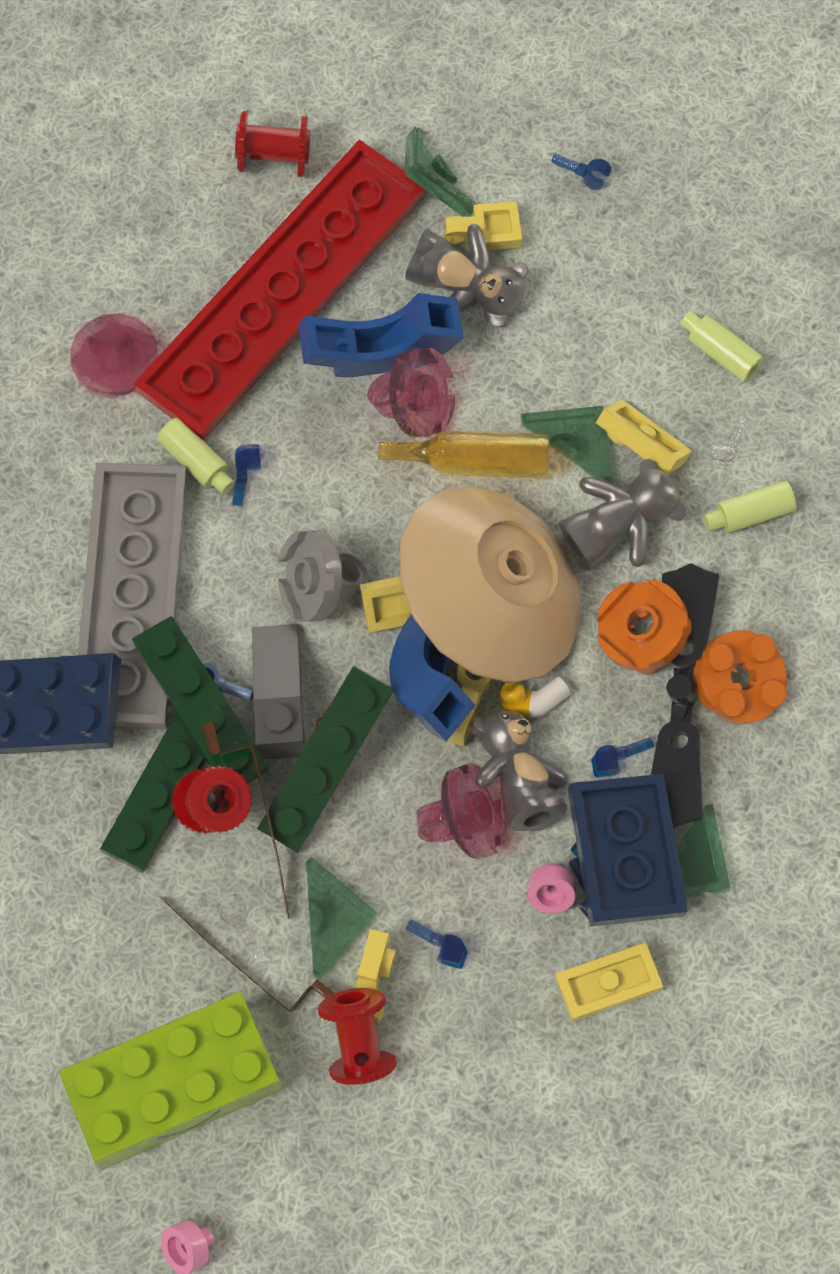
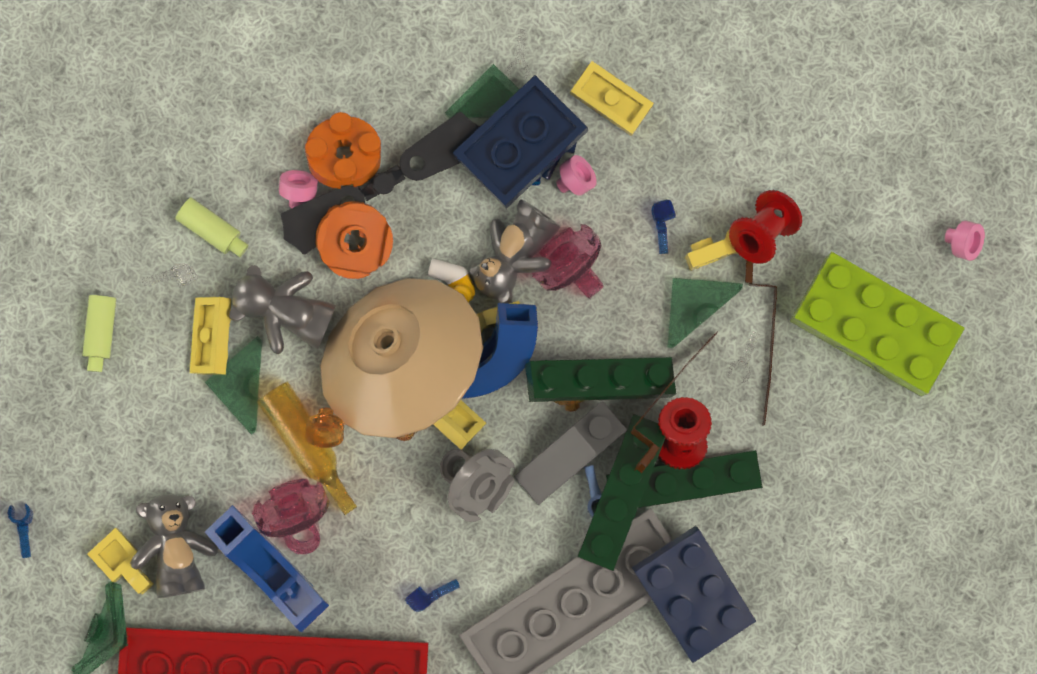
camera: 135 degrees left, 15 degrees up
(195, 455) = (444, 636): yellowish green cylinder -> none
(474, 467) = (324, 429): none -> clear orange tile
(606, 758) = (462, 203): clear blue hand -> none
(736, 610) = (297, 187): none -> bright pink tile

